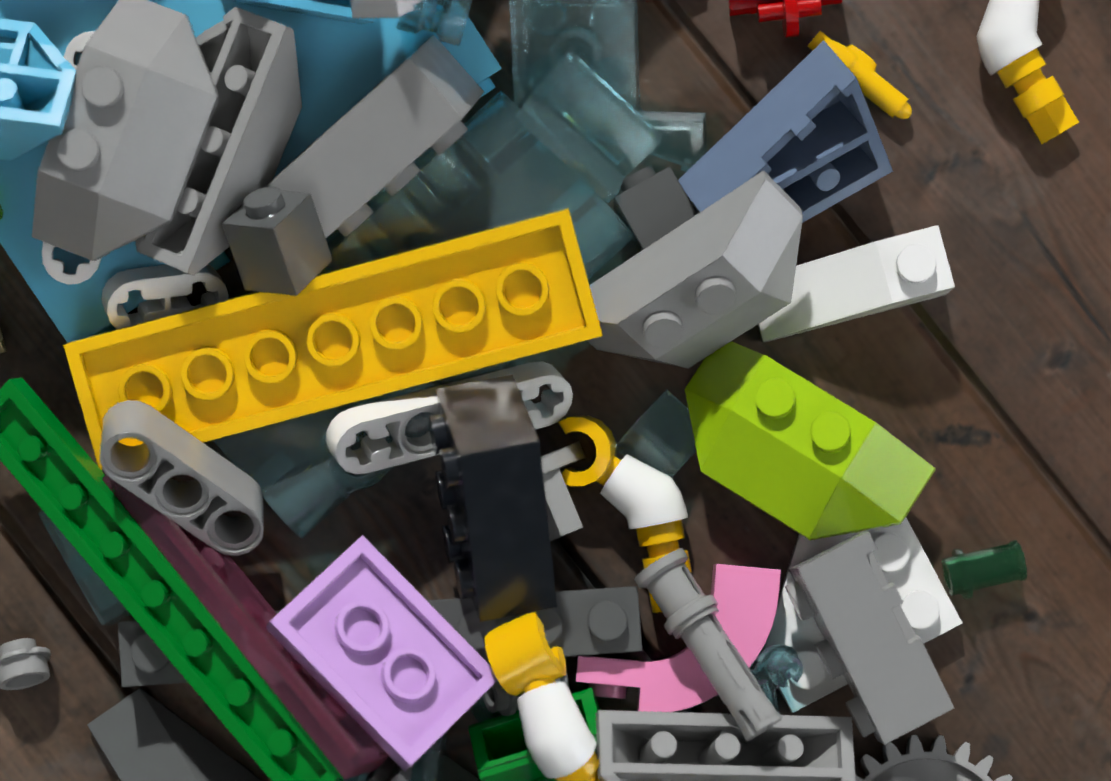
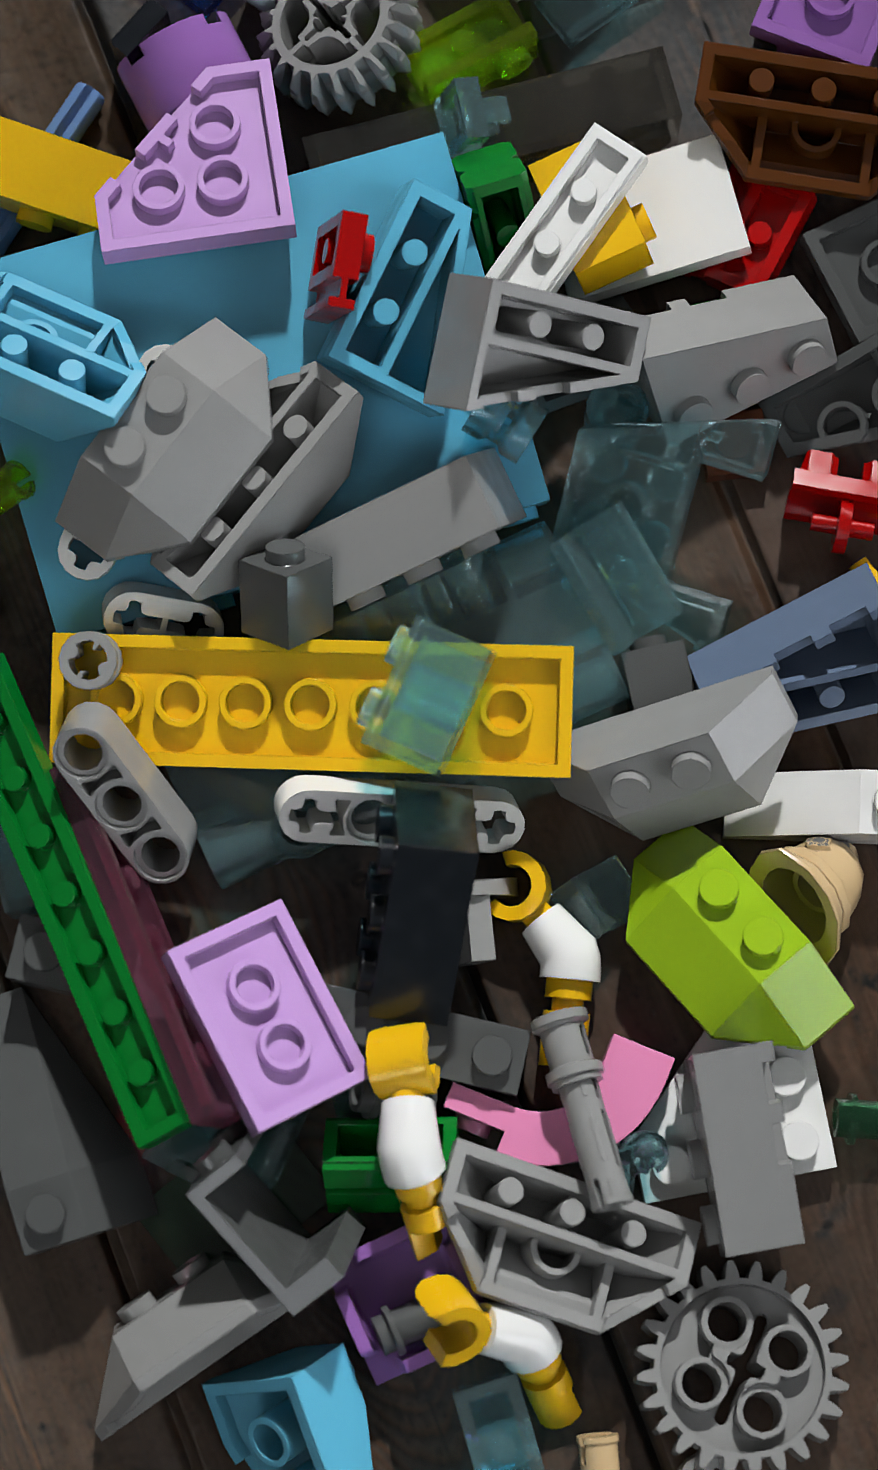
camera: 15 degrees right, 5 degrees down
(89, 356) = (73, 650): none -> light grey bush
(443, 302) = (426, 695): none -> clear light blue brick
(863, 367) = (814, 887): none -> tan piece

